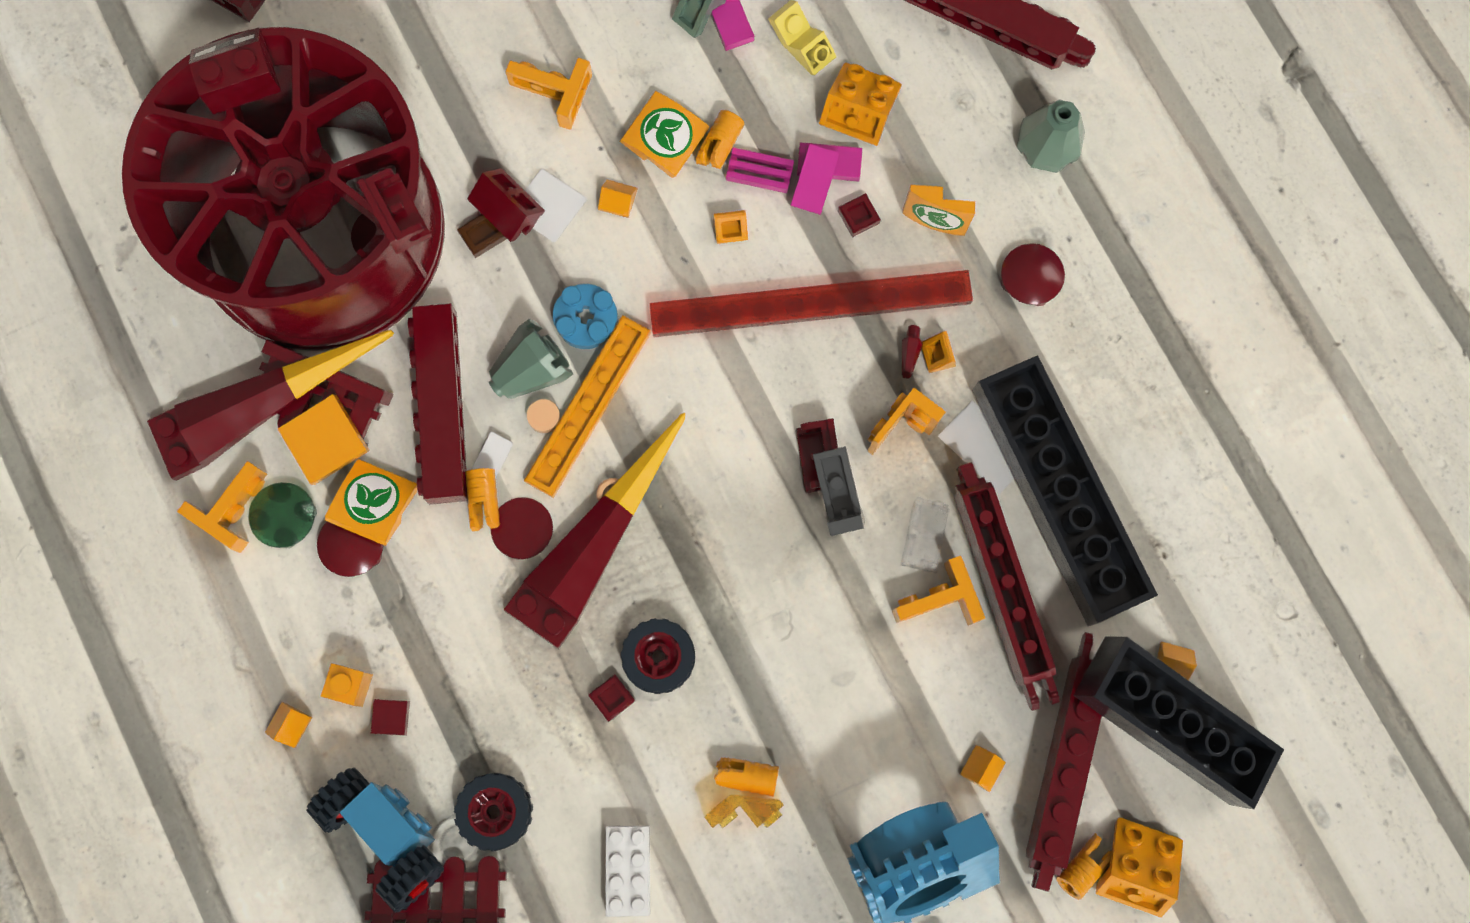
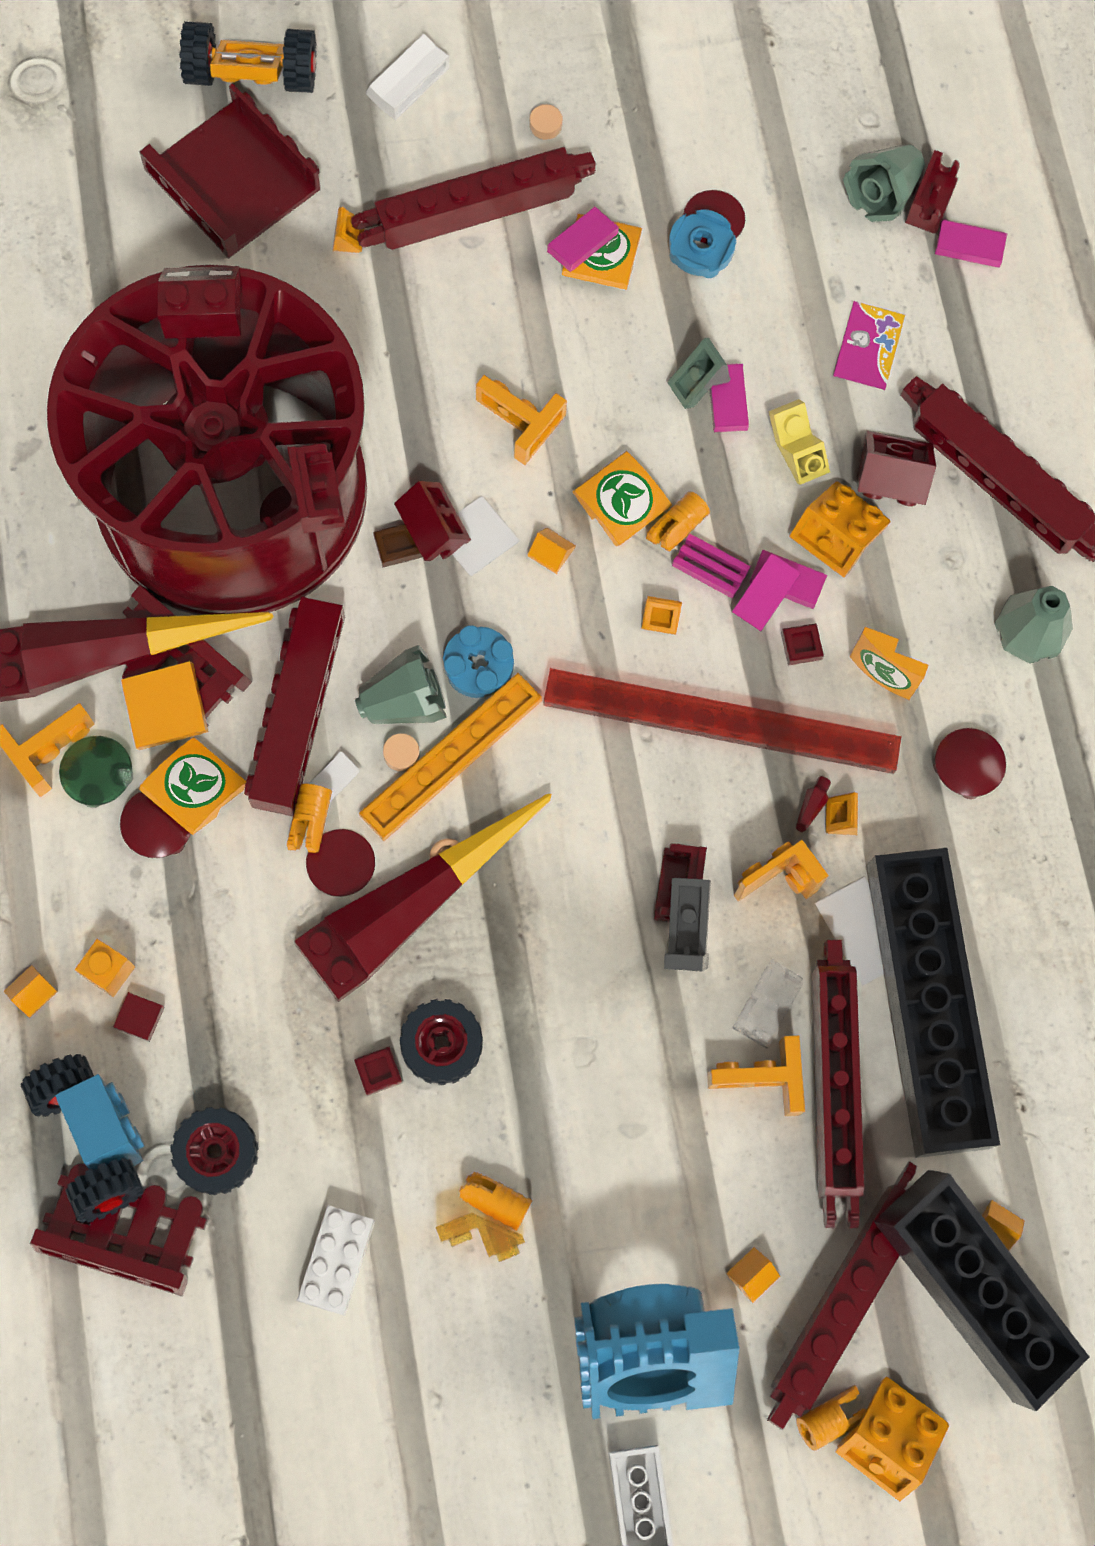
camera: 15 degrees right, 5 degrees down
(893, 36) = (896, 468): none -> slope

